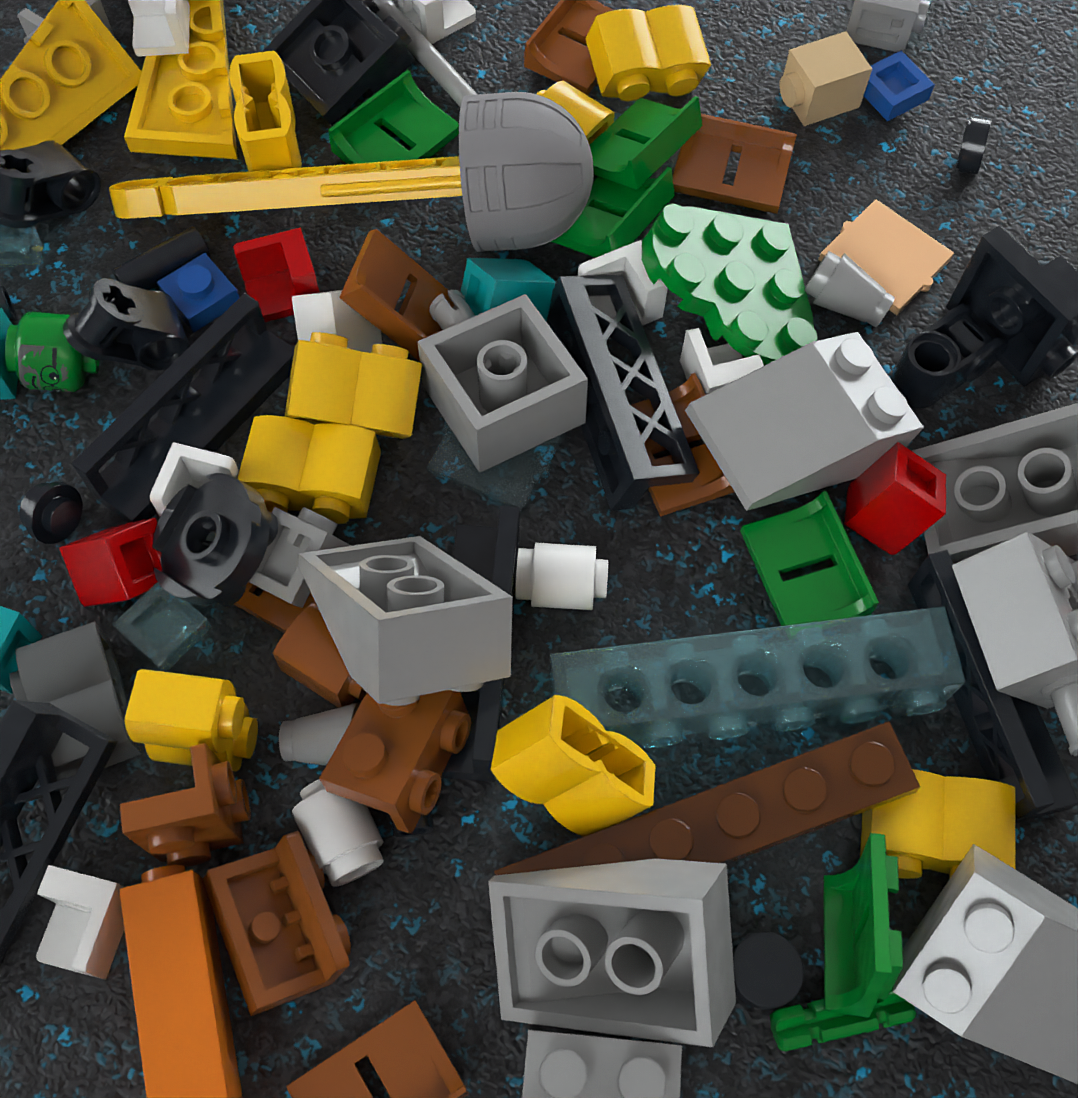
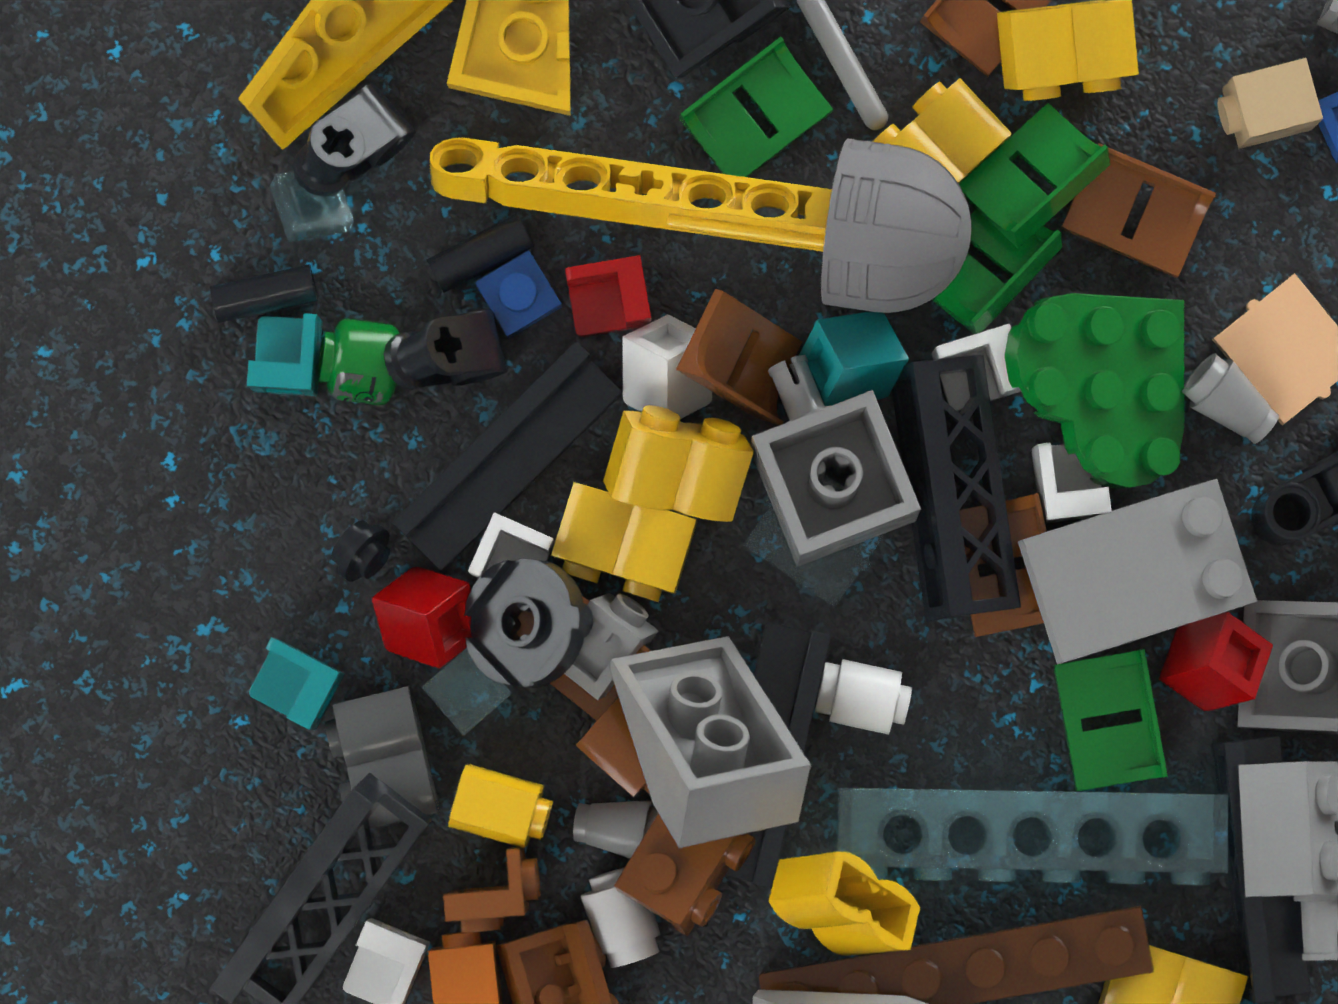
camera: 10 degrees right, 20 degrees up
(264, 112) = (611, 74): yellow brick -> none

